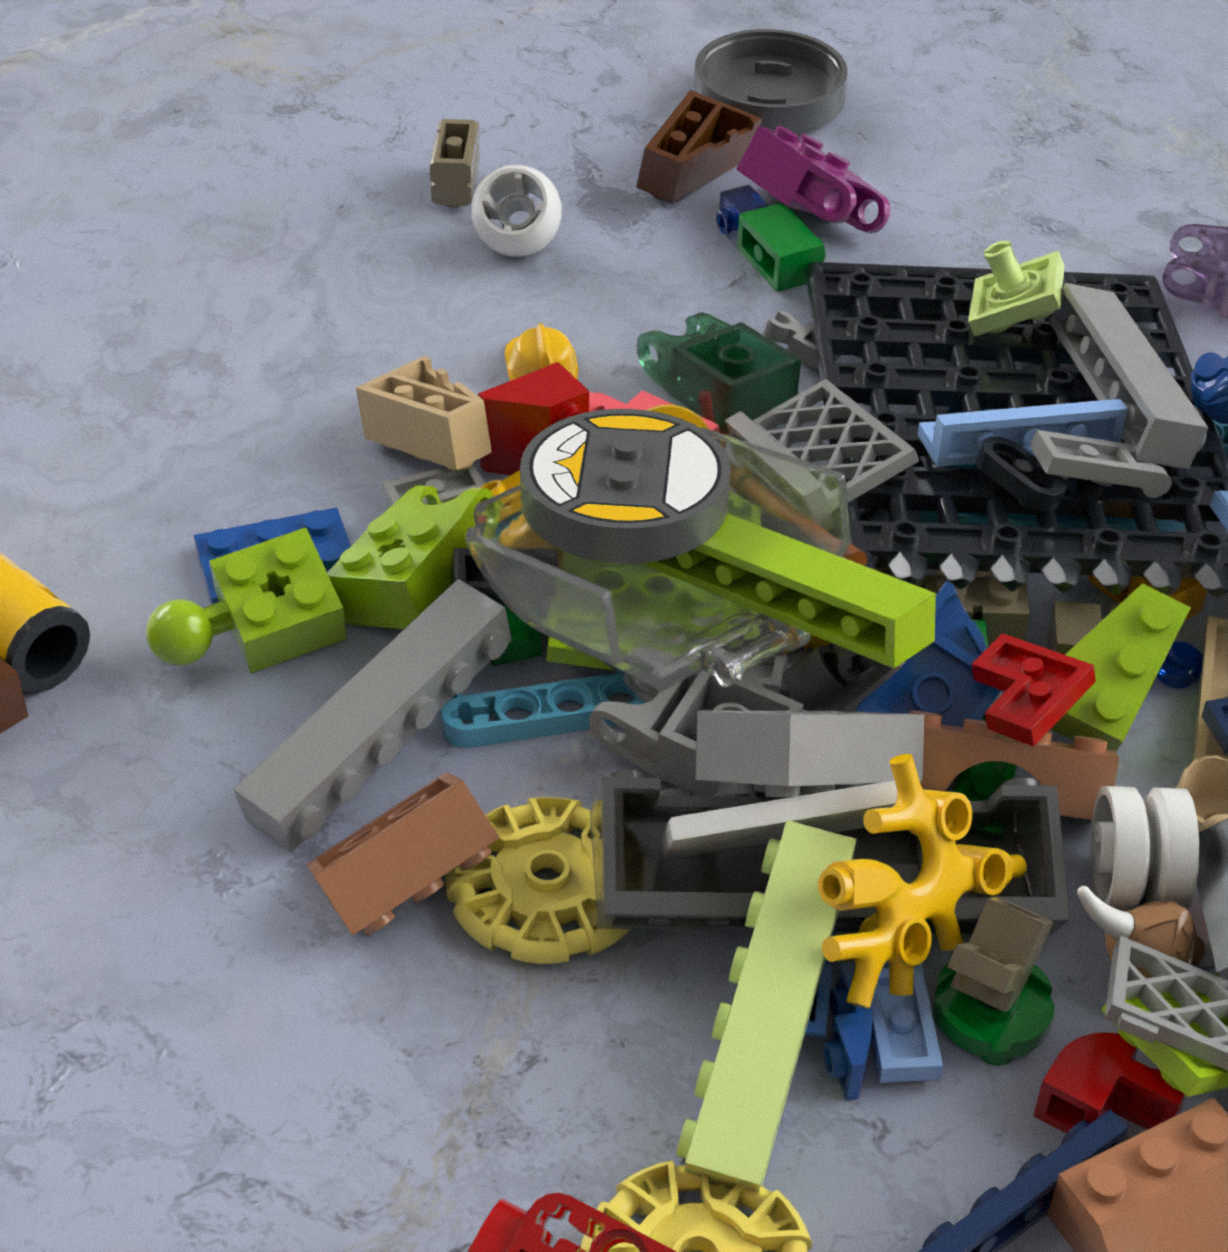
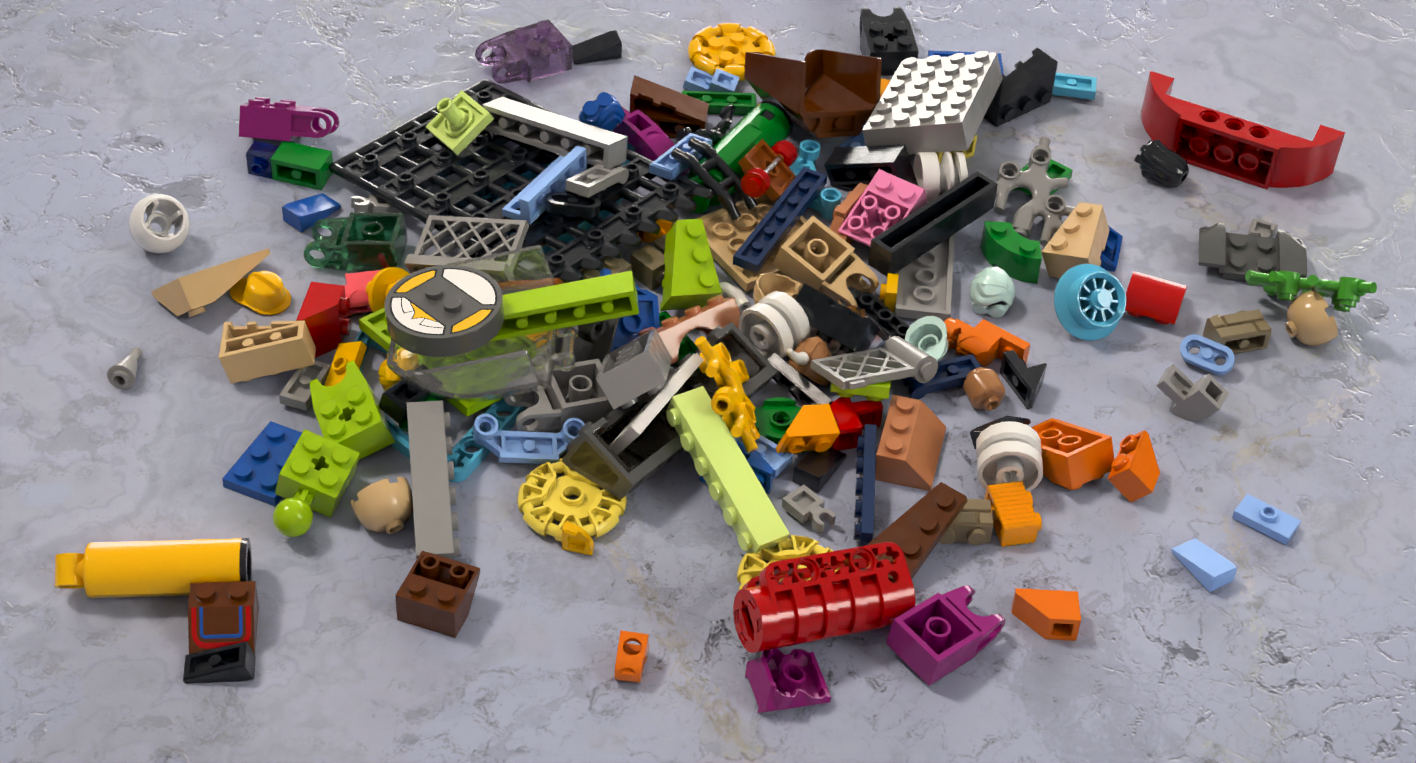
camera: 50 degrees left, 0 degrees up
(199, 862) = (437, 594): none -> reddish brown slope
(271, 349) = (123, 373): none -> light grey cone
(287, 693) = (384, 505): none -> tan cylinder
(304, 1172) = (631, 657): none -> orange leg
(403, 853) = (514, 526): nougat slope -> none
(454, 162) = (81, 217): dark tan brick -> none
(475, 308) = (199, 289): none -> tan wedge
(478, 955) = (576, 539): none -> yellow tile
(564, 747) = (522, 445): none -> light blue plate
(695, 146) = (191, 135): reddish brown wedge -> none
(726, 301) = (305, 212): none -> blue slope
(774, 76) = (178, 77): dark grey piece -> none
(866, 1168) = (806, 506): none -> light grey plate
(972, 1120) = (818, 468): none -> black slope
(998, 1043) = (810, 430): none -> light orange slope
(999, 953) = (775, 398): dark tan brick -> none
(1036, 687) = (679, 284): red plate -> none
(1087, 973) = (798, 385): none -> tile
(1158, 751) = (731, 291): none -> white arm

